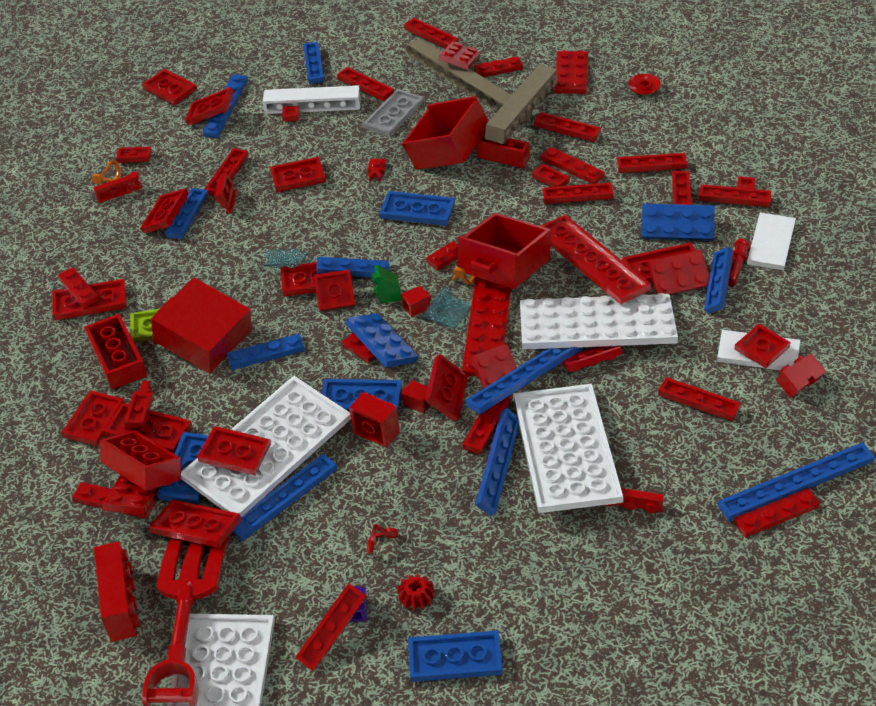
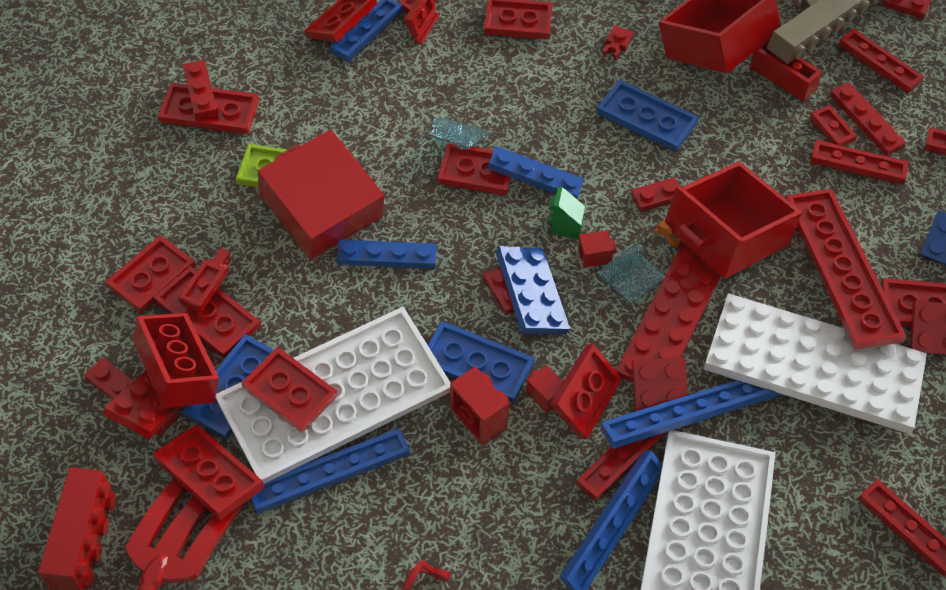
camera: 15 degrees right, 10 degrees up
(115, 351) = (208, 193): red brick -> none
(334, 290) = (500, 199): red plate -> none
(591, 357) = (789, 412): red plate -> none

